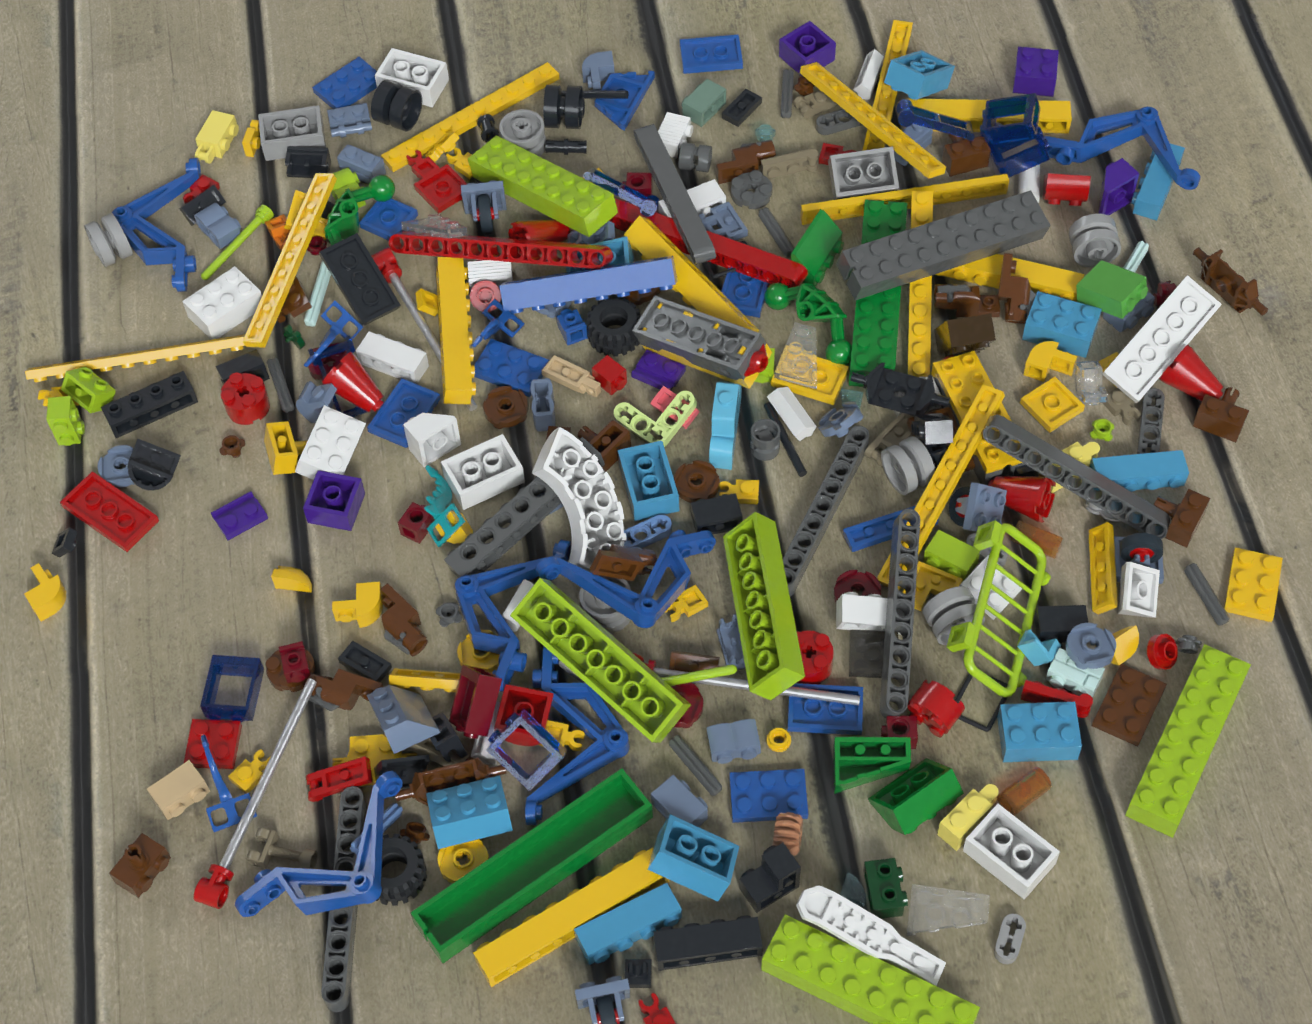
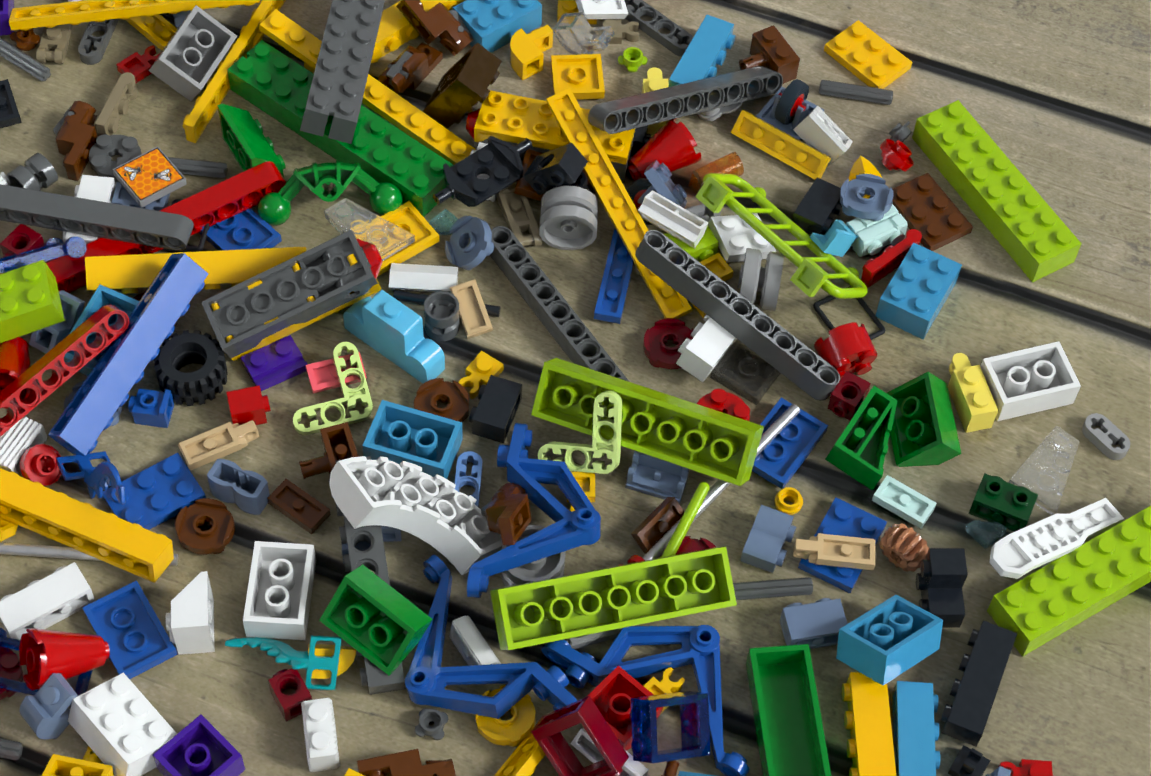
camera: 65 degrees left, 0 degrees up
(397, 555) = (320, 735): none -> white brick
(487, 529) = (375, 619): none -> green slope
(744, 214) = (149, 176): none -> tile
(744, 573) = (599, 444): none -> yellowish green beam
(750, 789) = (837, 551): none -> tan hinge
(765, 132) = (55, 103): clear light blue plate -> none
(787, 454) = (472, 309): none -> tan tile
(834, 818) = (904, 501): none -> light aqua plate
(955, 527) = (672, 218): none -> white piece
(1024, 791) = (966, 336): clear orange brick -> none

